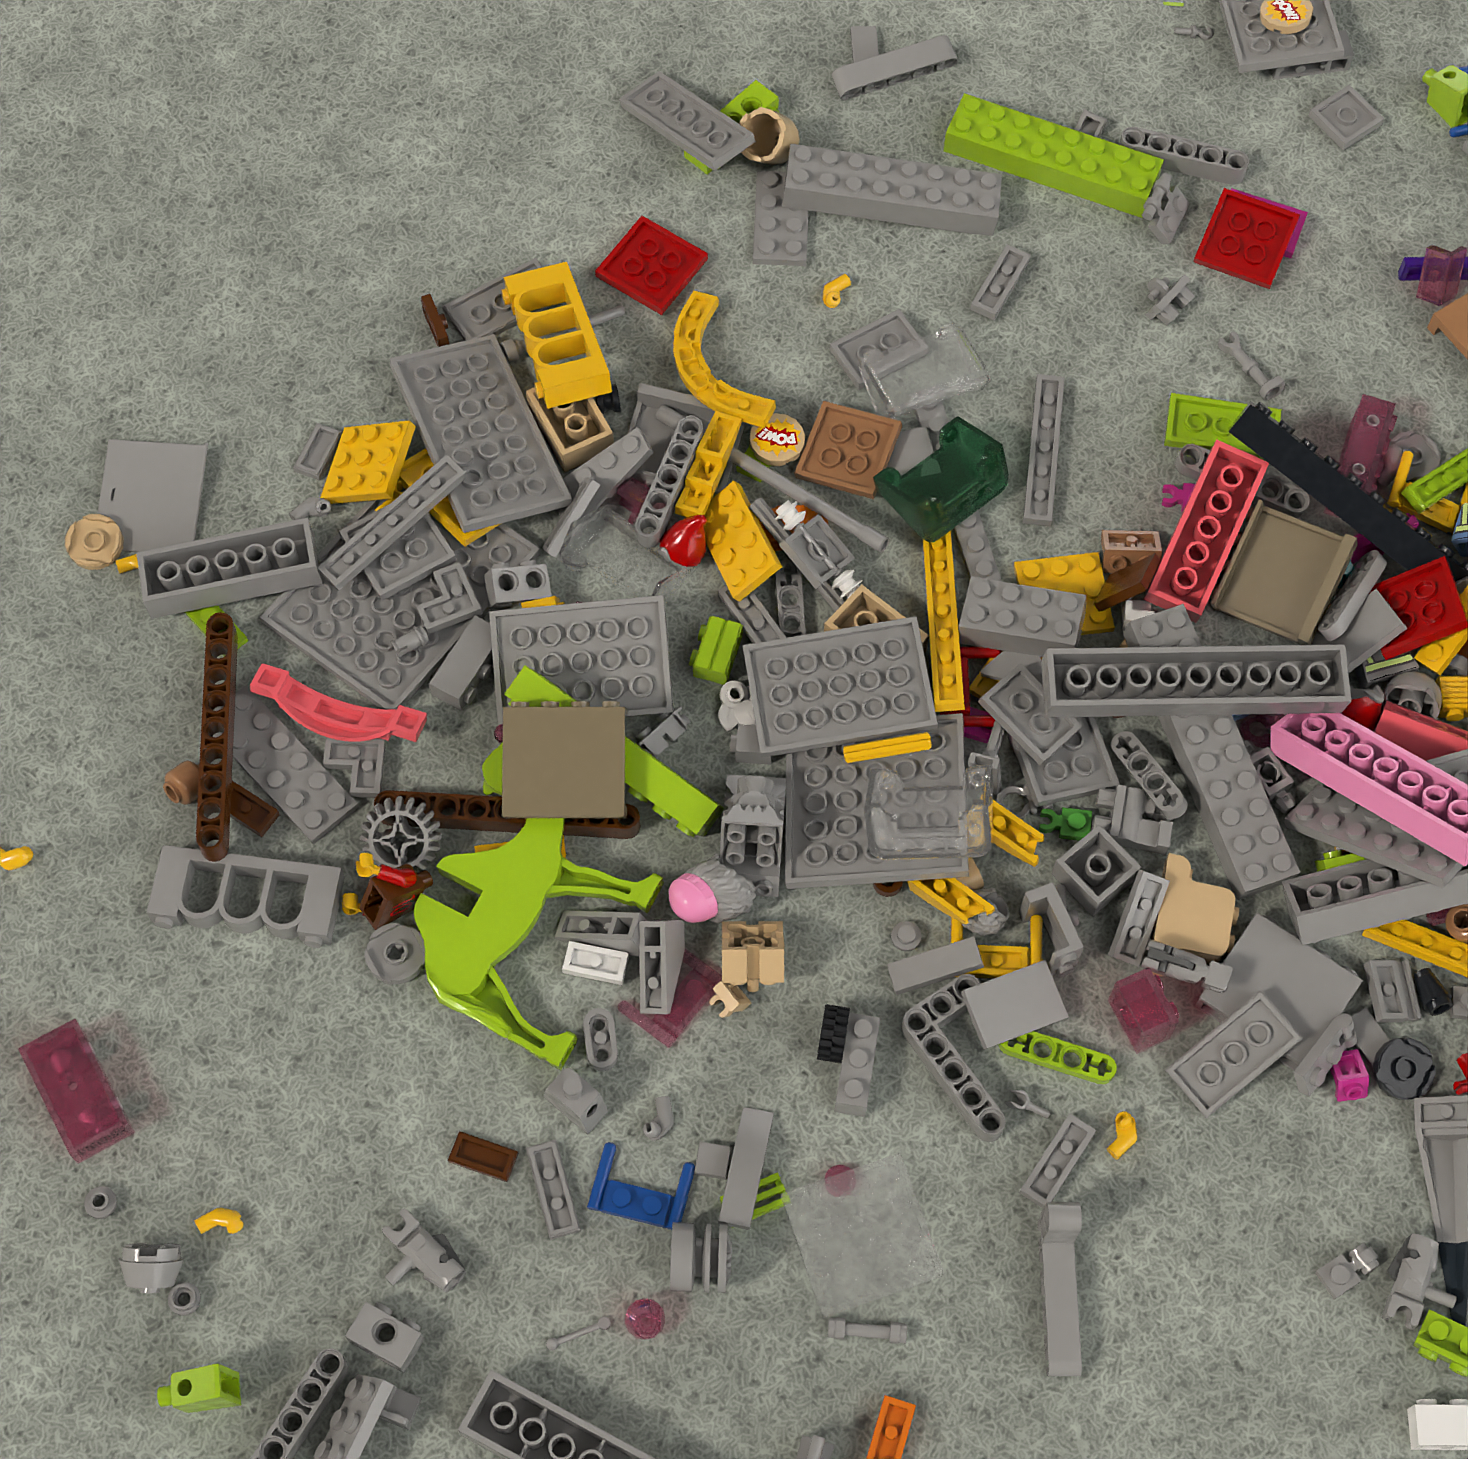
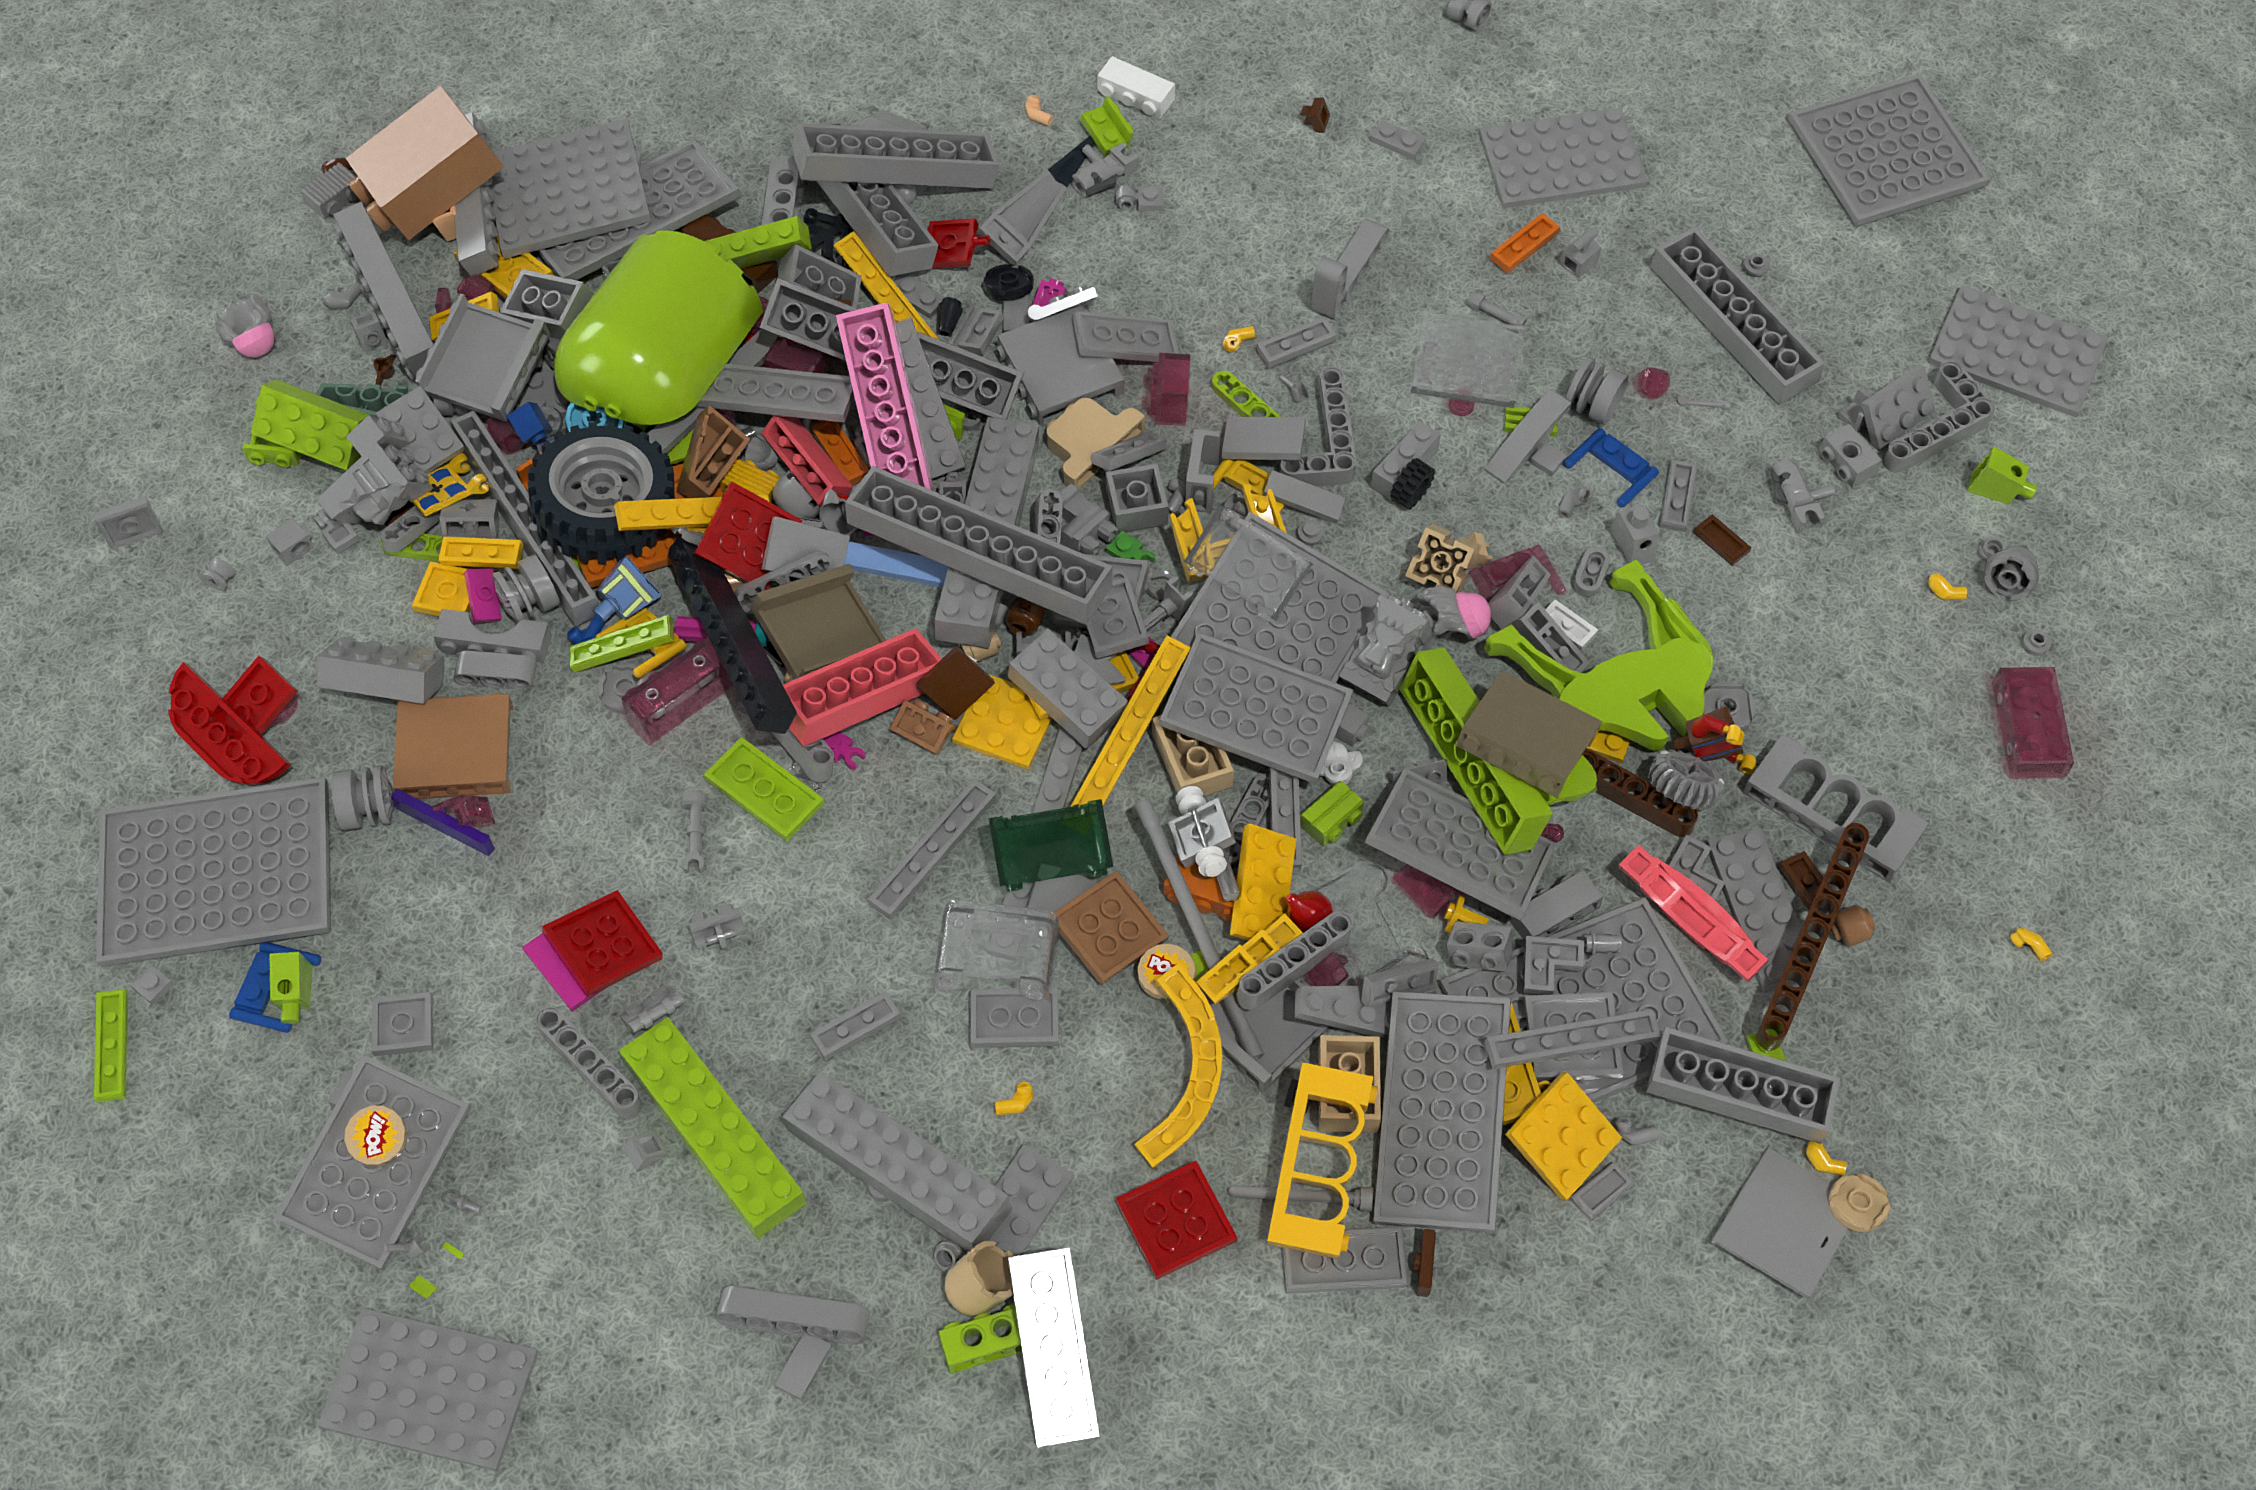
camera: 150 degrees left, 5 degrees down
(887, 747) = (1237, 639): yellow axle -> none
(1186, 966) = (1124, 390): light grey piece -> none

